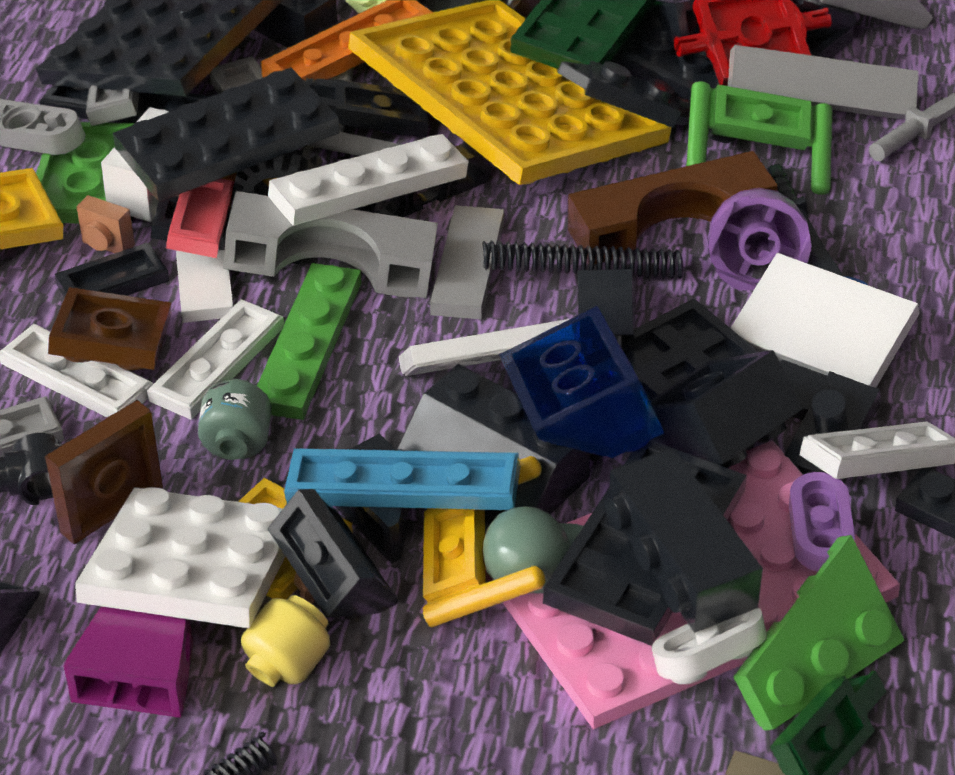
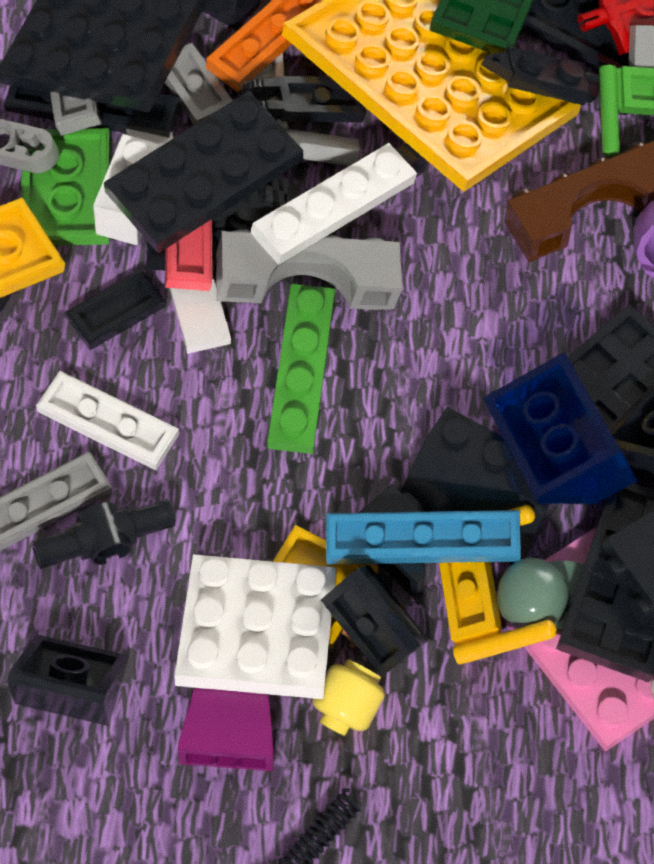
camera: 10 degrees left, 20 degrees up
(101, 468) = (168, 544): reddish brown plate -> none
(105, 225) = (100, 257): nougat plate -> none
(110, 329) = (133, 377): reddish brown plate -> none
(215, 358) = (226, 395): white tile -> none
(234, 416) = (261, 469): sand green head -> none
(461, 277) = (425, 269): light grey tile -> none
(467, 350) = (459, 379): white tile -> none
(494, 249) = (549, 267): black piece -> none
(613, 294) = (561, 320): black slope -> none

